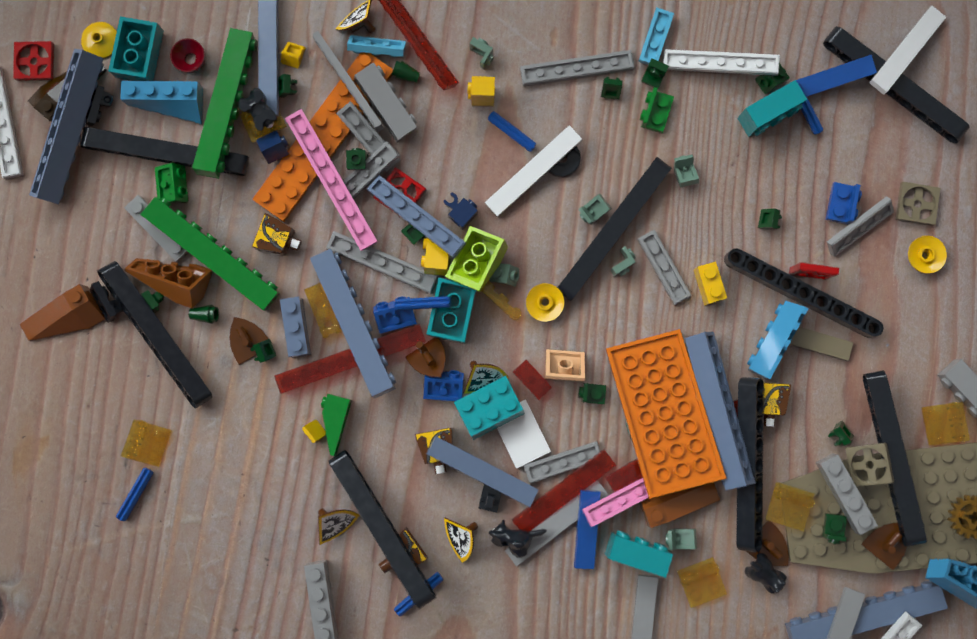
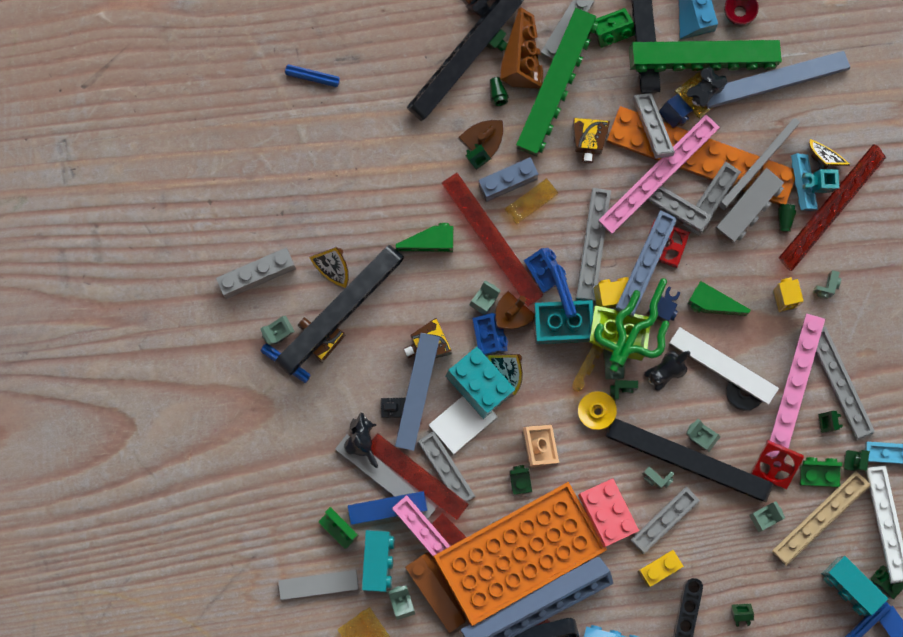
camera: 80 degrees right, 5 degrees down
(146, 443) = (363, 72): clear yellow hinge -> none
(281, 172) = (653, 125): none -> light grey tile
(285, 85) = (738, 106): dark green tile -> none
(292, 54) = (772, 105): yellow slope -> none
(314, 431) = (414, 223): yellow slope -> none
(352, 323) = (526, 231): sand blue brick -> none
(356, 159) = (686, 192): dark green bracket -> none
(381, 27) = (822, 181): none -> teal brick
(385, 595) = (277, 331): none -> sand green bracket
(407, 381) = (485, 297): none -> sand green bracket
(412, 234) = (627, 265): dark green tile -> none
(460, 538) = (348, 388): shield -> none
(467, 165) = (714, 302): none -> green slope
(496, 260) = (623, 350): none -> green plant
(511, 131) = (757, 336): blue axle -> none
(521, 221) = (670, 367): none -> black animal
(529, 268) = (626, 386): none -> dark green bracket
(532, 380) = (518, 417): clear red panel -> none
(573, 112) = (796, 382): none -> bright pink plate
(594, 582) = (338, 528): none -> green bracket
(645, 318) = (608, 512): none -> coral plate
(648, 157) = (783, 451): none -> red piece
(699, 121) = (821, 518): none -> tan tile

